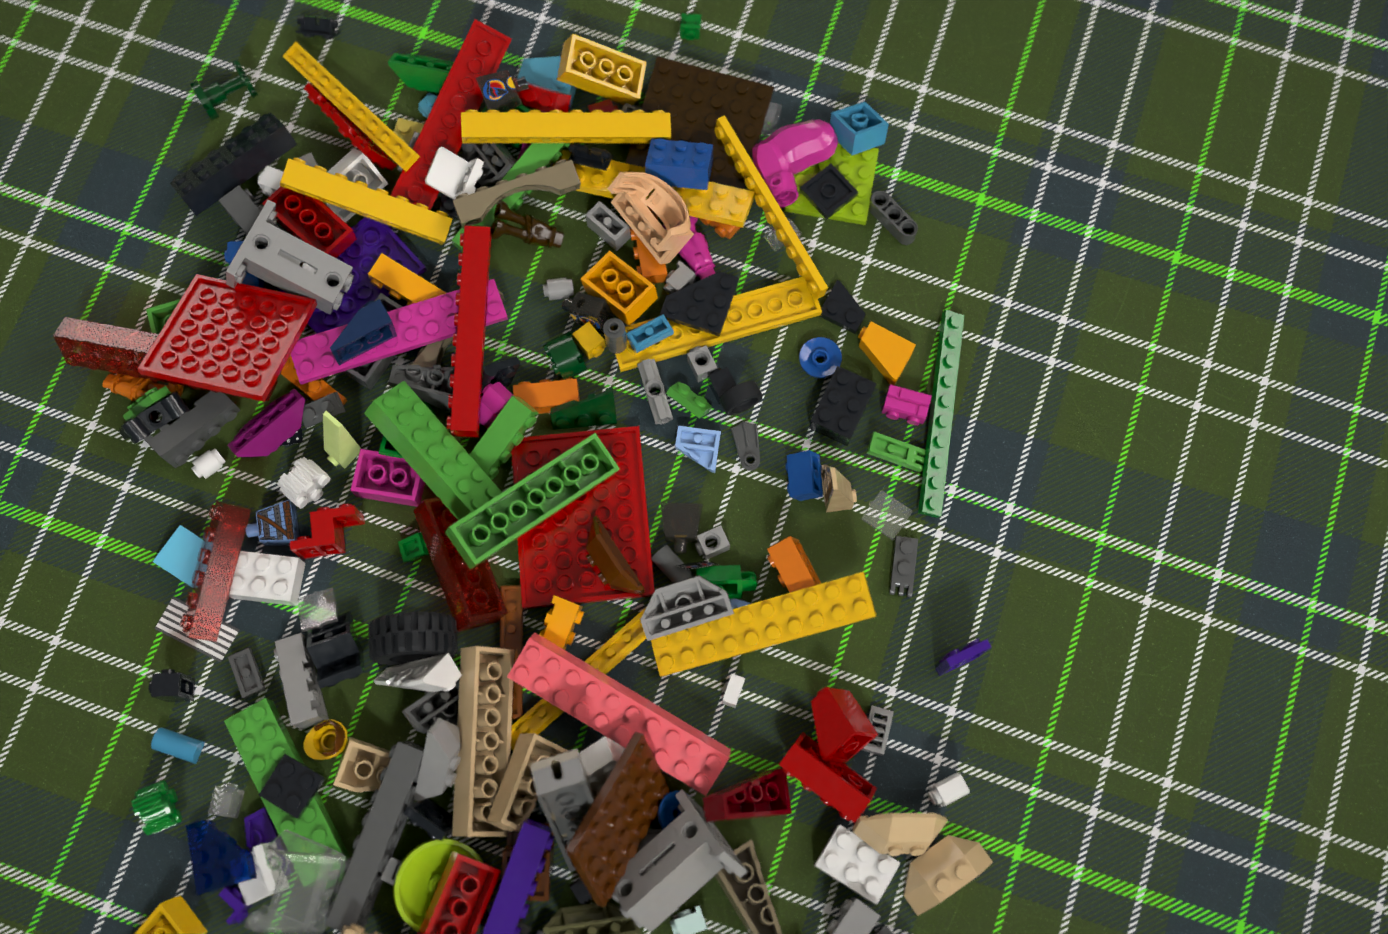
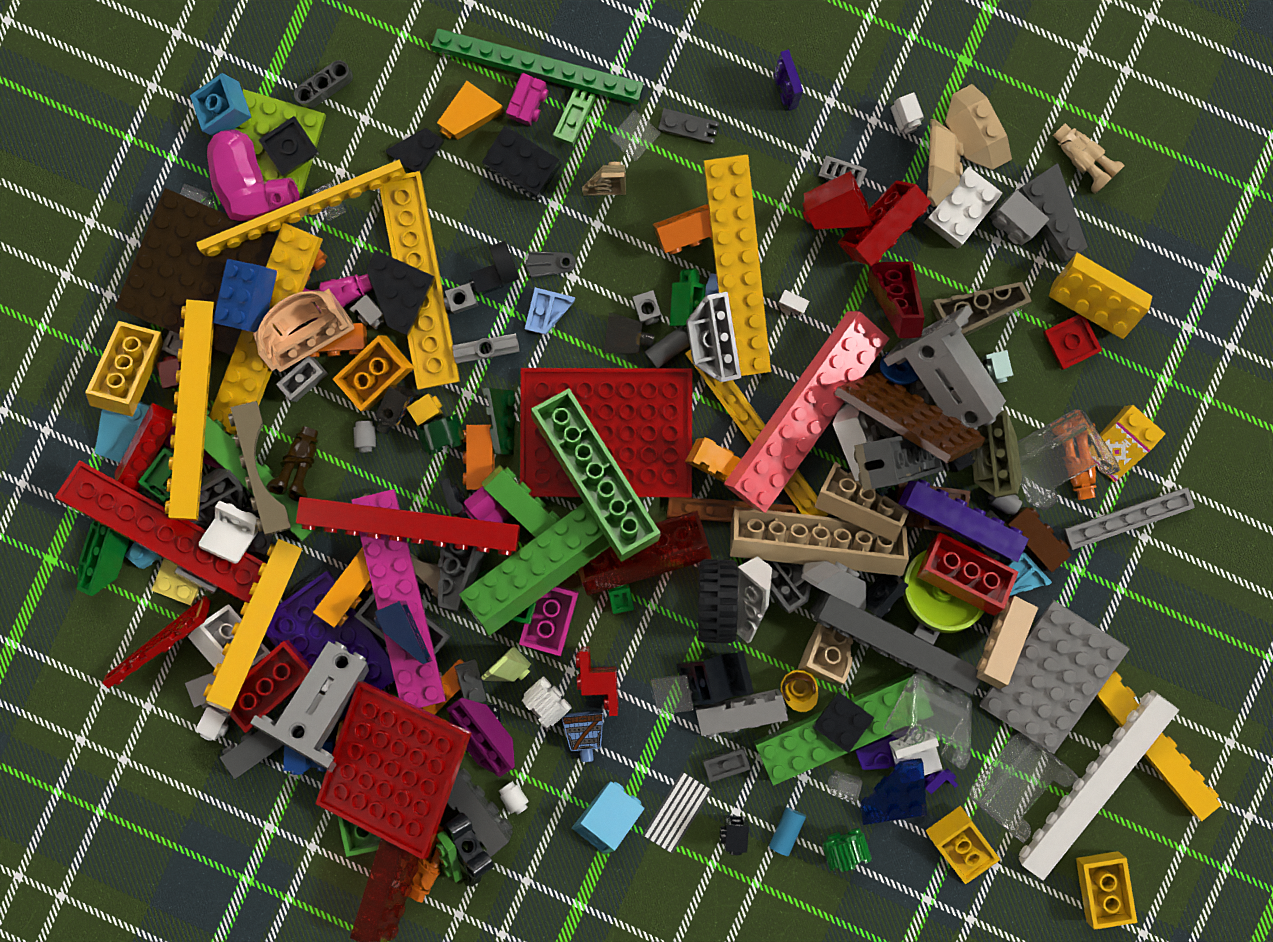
camera: 80 degrees left, 15 degrees up
(215, 571) = (629, 789): clear red brick -> none
(216, 94) = (104, 780): dark green piece -> none
(233, 163) = (189, 764): black brick -> none
(267, 578) = (636, 744): white brick -> none
(325, 28) = (36, 662): black hinge -> none
(351, 106) = (136, 638): yellow plate -> none
(501, 90) = (142, 475): clear smoke torso -> none
(592, 158) = (224, 390): black hinge -> none
(610, 561) = (657, 407): reddish brown wedge -> none
(615, 335) = (434, 380): dark grey brick -> none
(649, 333) = (426, 346): dark azure brick -> none
(683, 395) = (498, 315): bright green plate -> none
(690, 26) = (75, 271): green bracket -> none
(697, 564) = (668, 323): black sticker -> none
(804, 475) = (590, 210): blue brick -> none
(820, 348) = (460, 171): blue dish -> none

